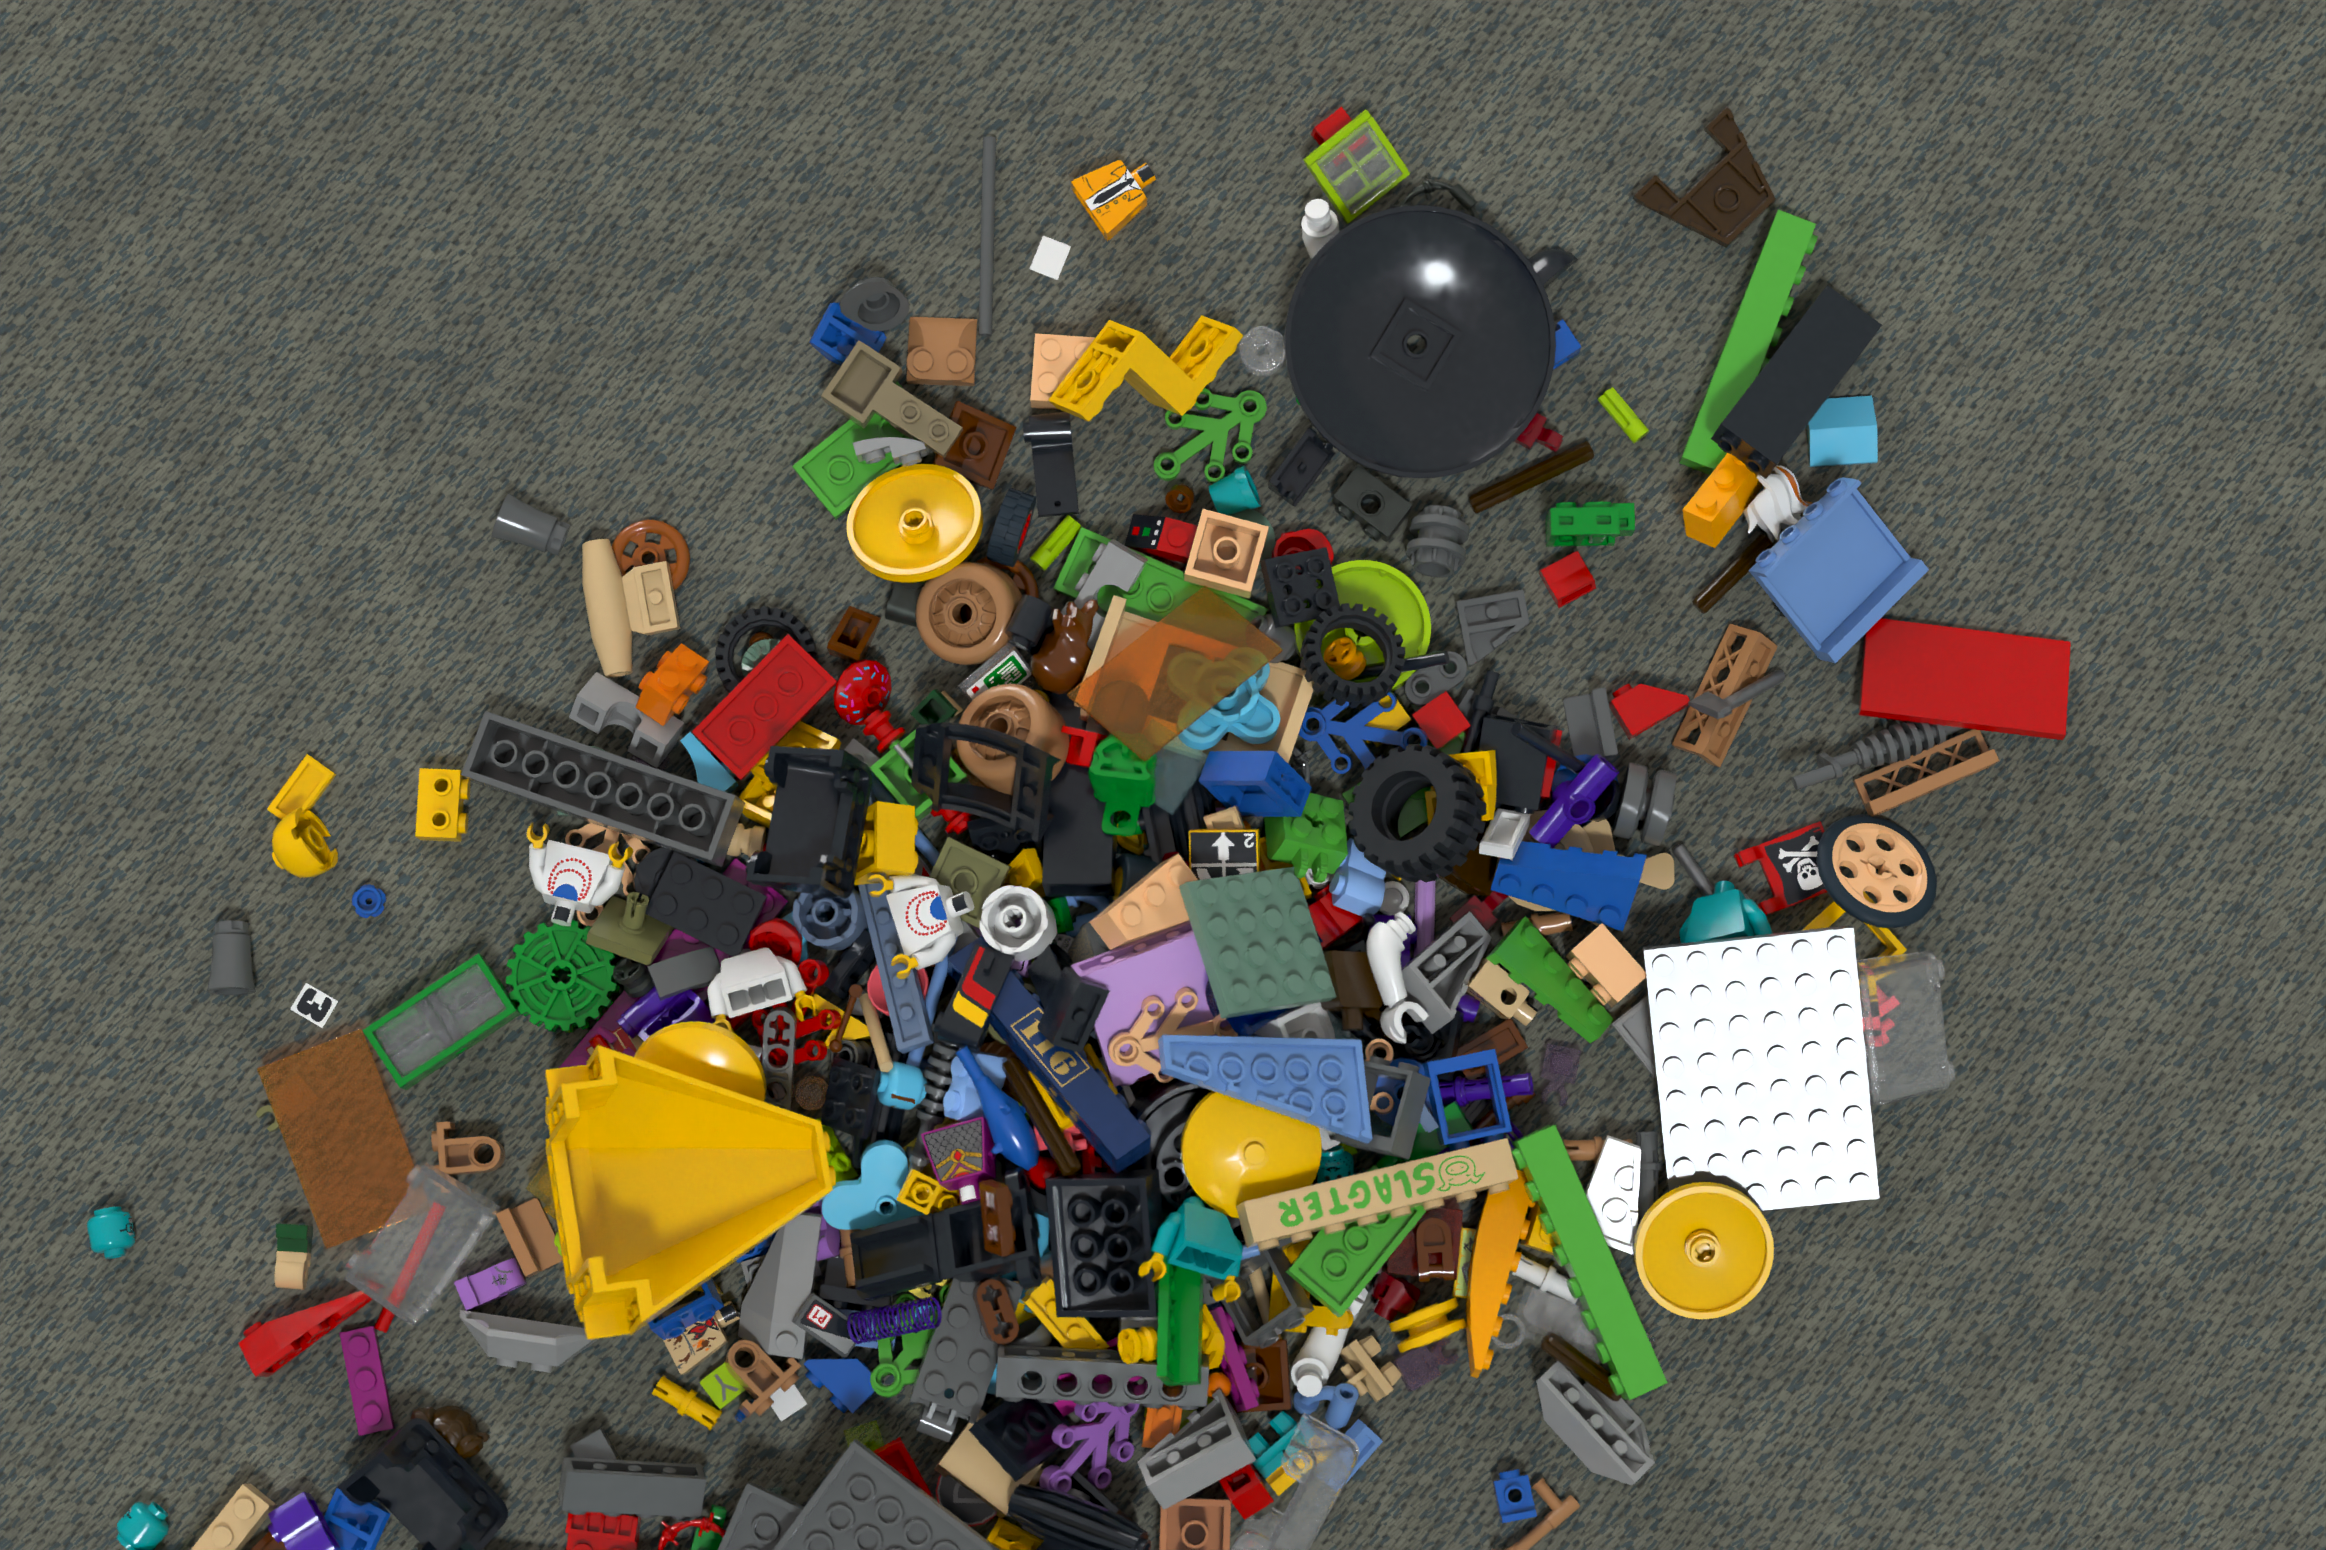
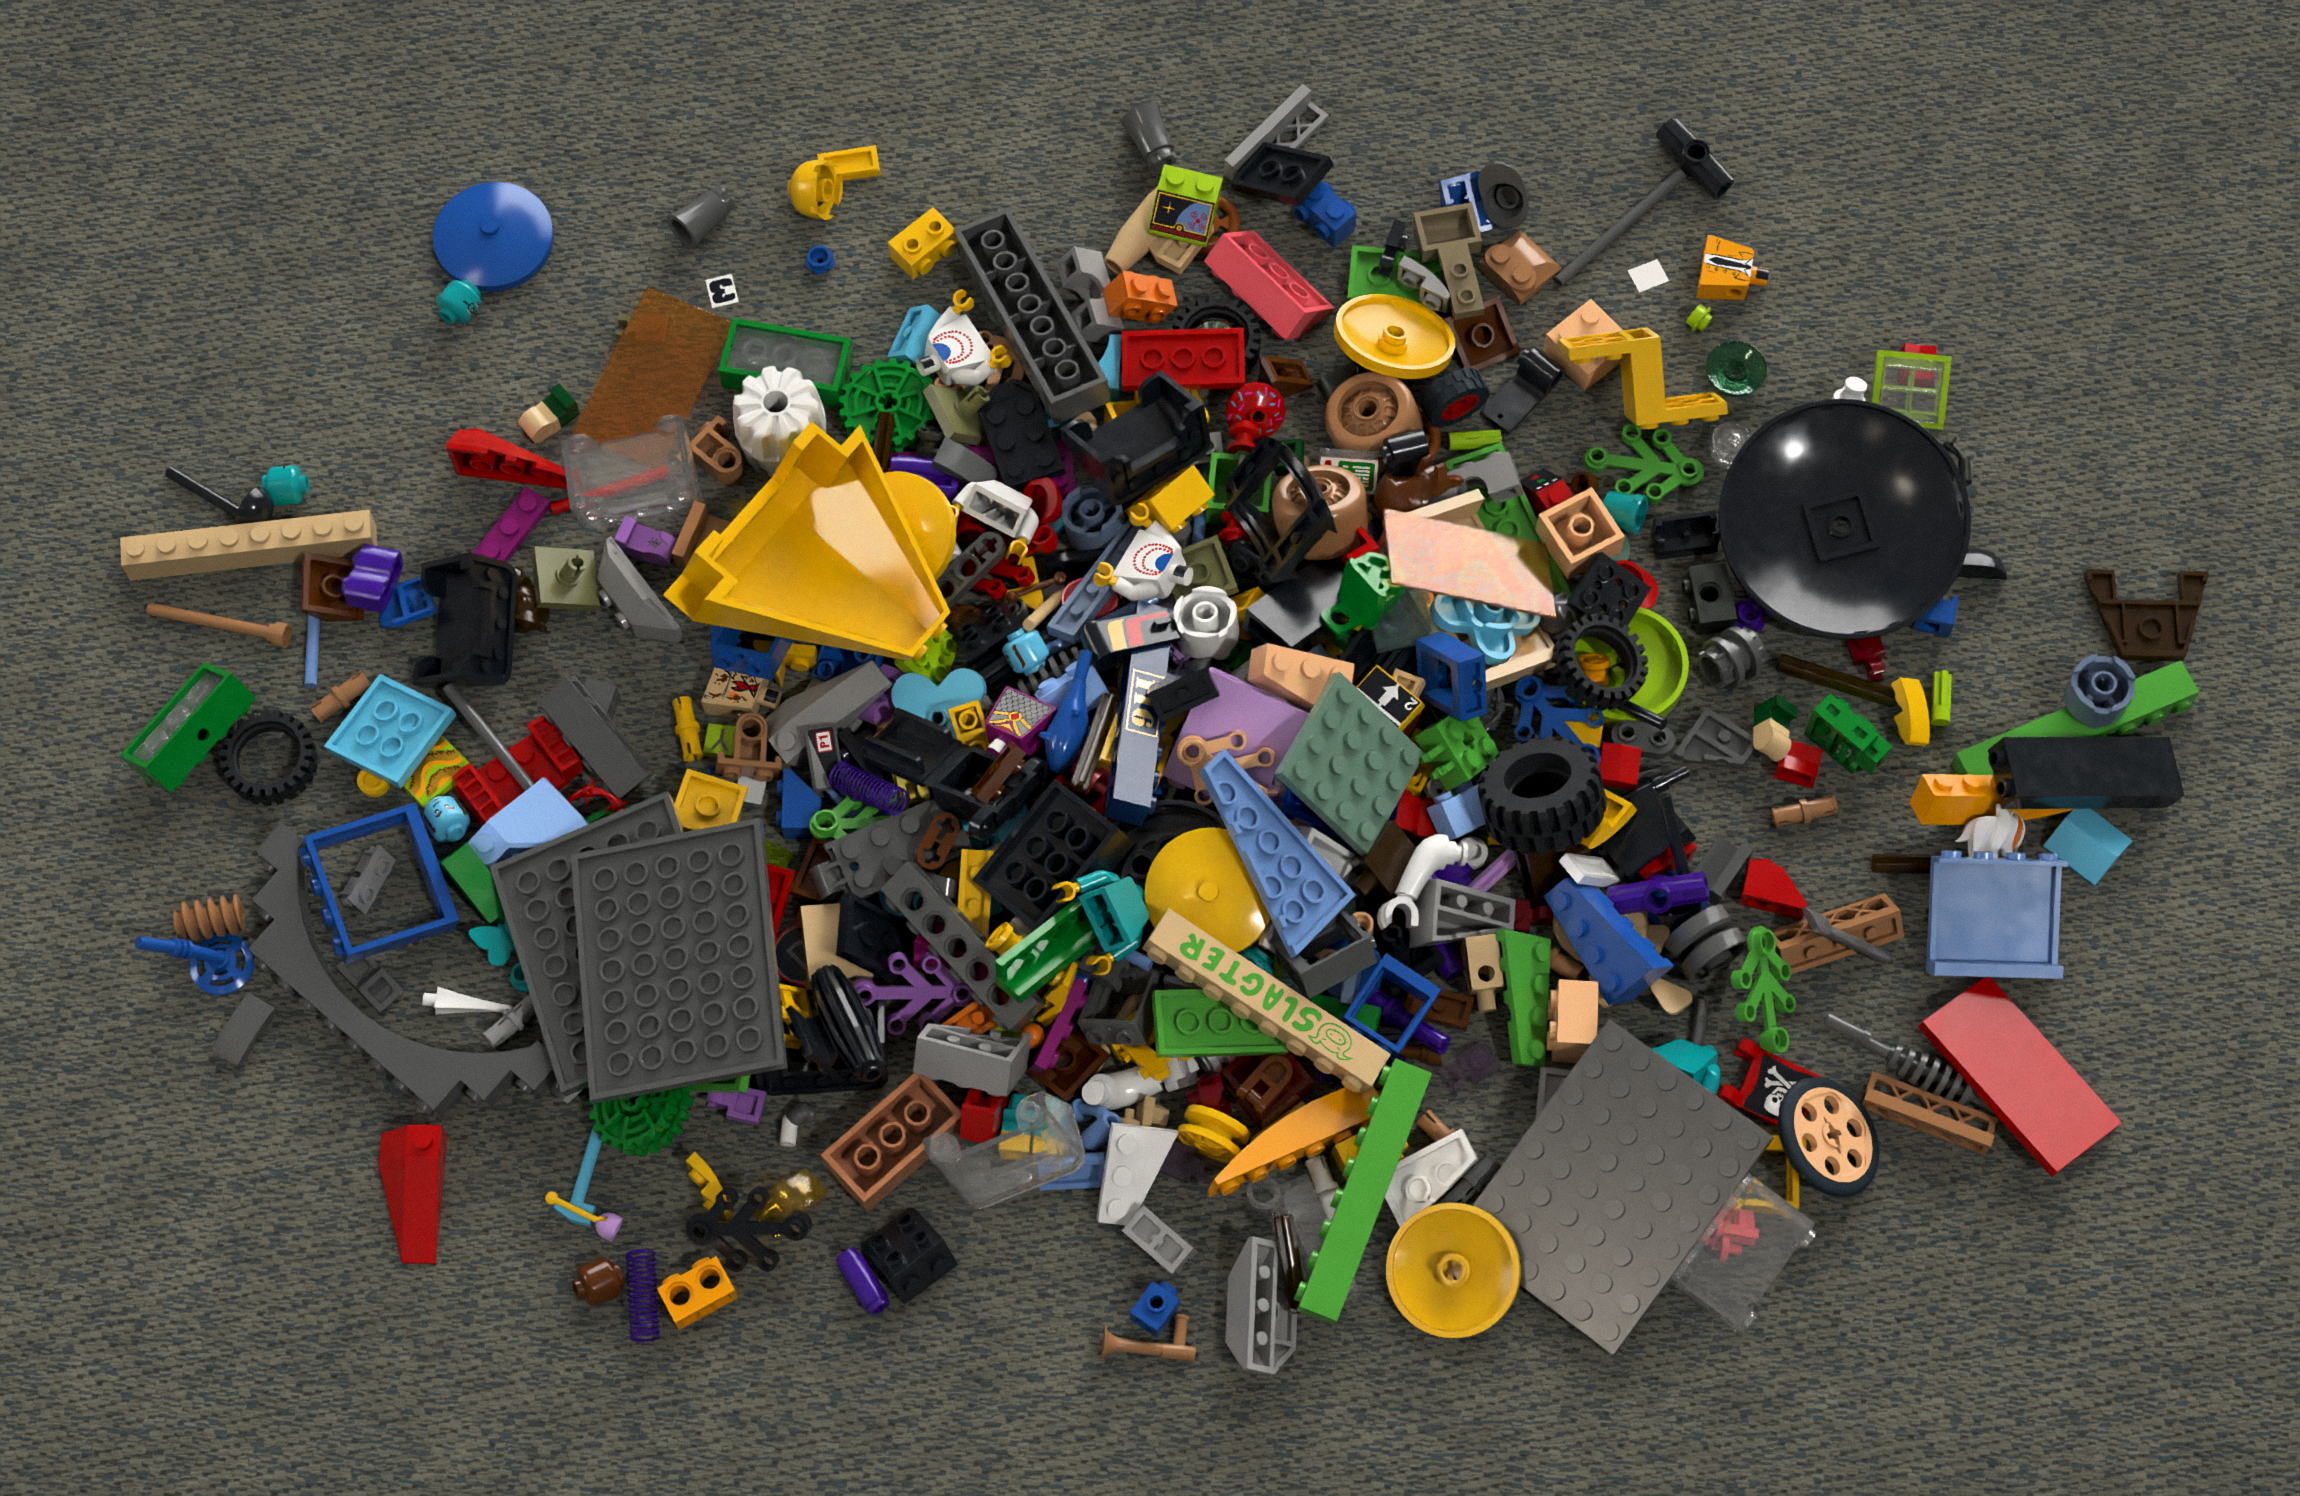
camera: 45 degrees right, 15 degrees down
(73, 1145) = (493, 236): none -> blue dish
(459, 1379) = (565, 578): none -> olive tile
(473, 1078) = (774, 414): none -> white wheel
(517, 893) = (913, 334): none -> medium azure panel
(601, 1021) = (883, 438): none -> dark brown axle
(621, 433) = (1274, 126): none -> light grey fence
(631, 570) = (1185, 205): none -> slope
(677, 462) = (1281, 173): none -> black plate
(739, 457) = (1327, 214): none -> blue brick
(758, 566) = (1267, 284): none -> coral slope
(780, 1455) = (708, 801): none -> yellow panel
(830, 433) = (1396, 243): none -> black plate
(905, 1417) = (803, 884): none -> reddish brown plate
(967, 113) = (1706, 168): none -> black piece
(1130, 260) = (1699, 318): none -> lime plate
(1202, 262) = (1737, 357): none -> clear green dish
(1394, 1414) = (1130, 1168): none -> white wing
(1422, 489) = (1749, 607): none -> dark purple plate
(1466, 1443) = (1159, 1240): none -> light grey hinge
(1525, 572) = (1772, 727): none -> leg
(1609, 615) = (1804, 811): none -> medium nougat pin
(1624, 457) = (1914, 719): none -> yellow slope
(1692, 770) = (1761, 947): none -> bright green plant
(1764, 293) = (2099, 690): none -> sand blue brick

